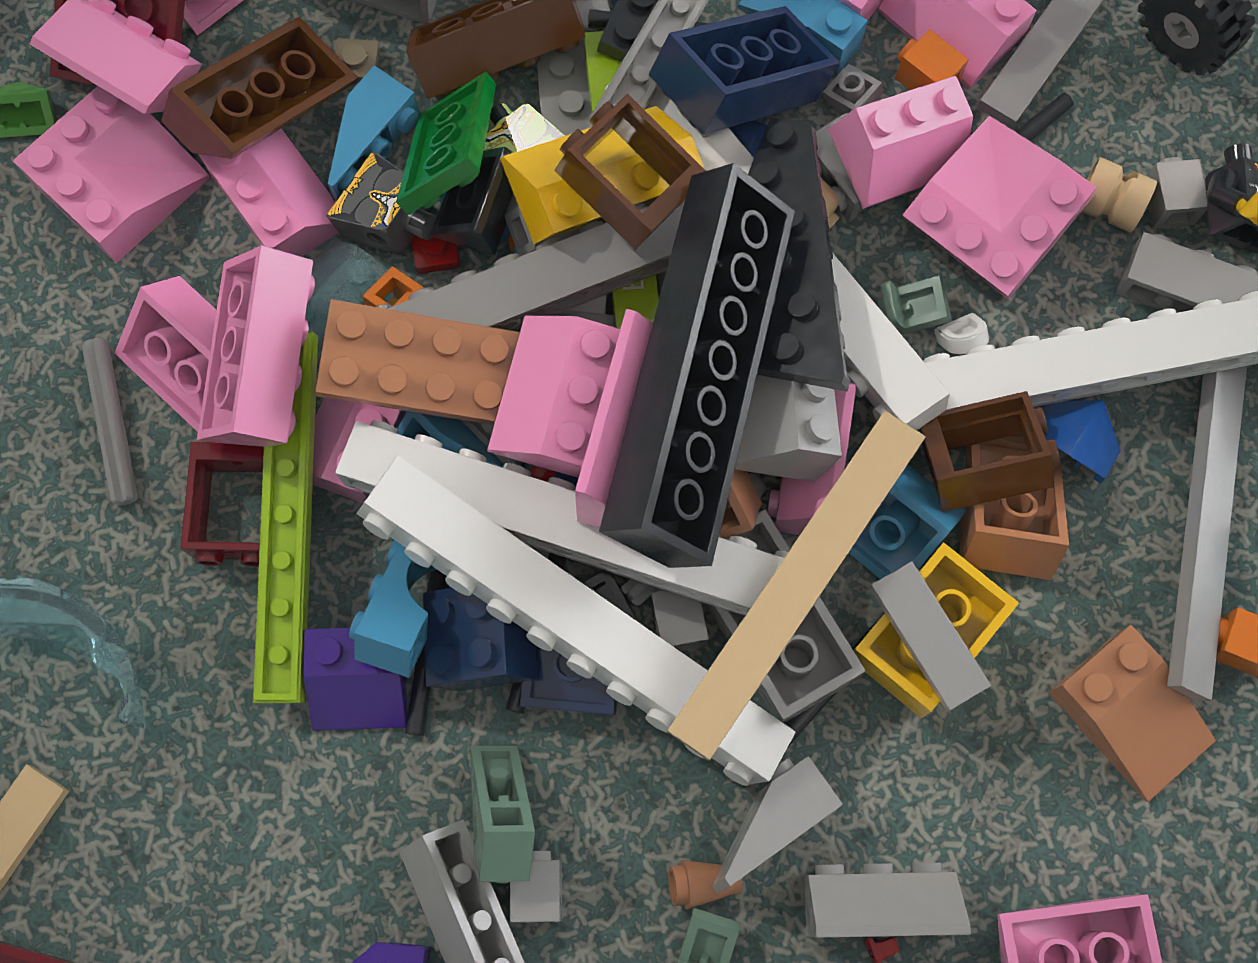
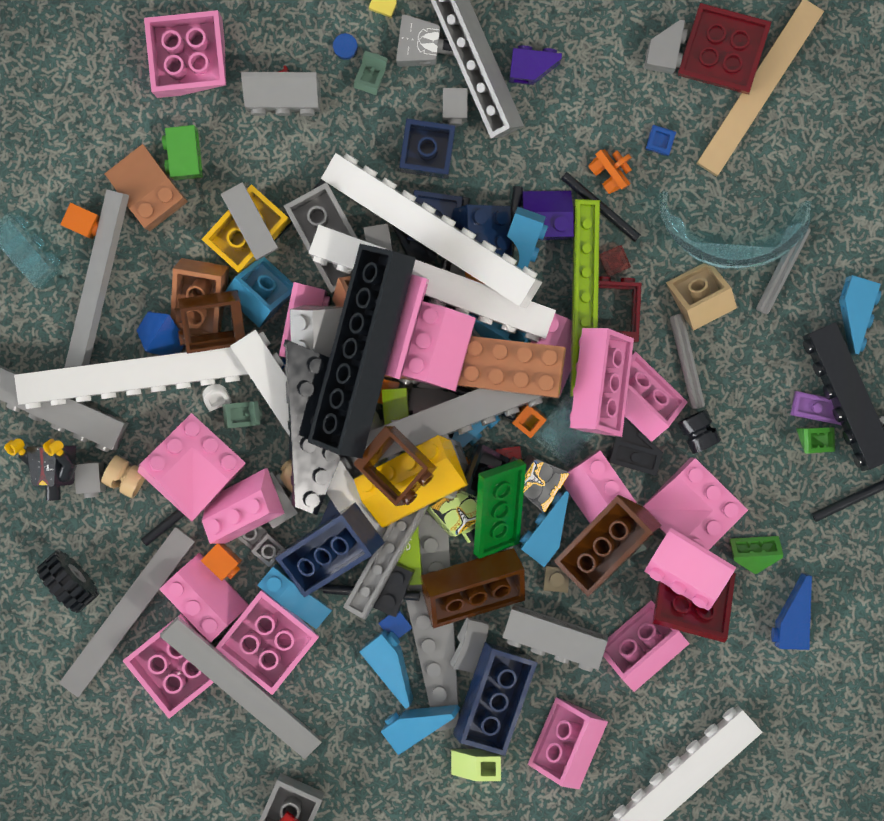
camera: 175 degrees left, 15 degrees up
(72, 535) = (702, 295): none -> tan slope
(91, 295) = (699, 431): none -> black wheel
(134, 833) = (660, 140): none -> blue tile
(200, 256) = (635, 451): none -> black wing
(219, 751) = (605, 161): none -> orange hips
(232, 598) = (614, 261): none -> clear red tile
(268, 711) = (604, 209): none -> black bar
(501, 815) = (471, 141): sand green slope -> none
(588, 797) = (427, 148): none -> dark blue brick
(692, 884) = (371, 107): nougat cone -> none
(777, 816) = (333, 134): light grey slope -> none
(795, 586) = (315, 243): tan tile -> none
(1068, 781) = (183, 152): none -> bright green brick

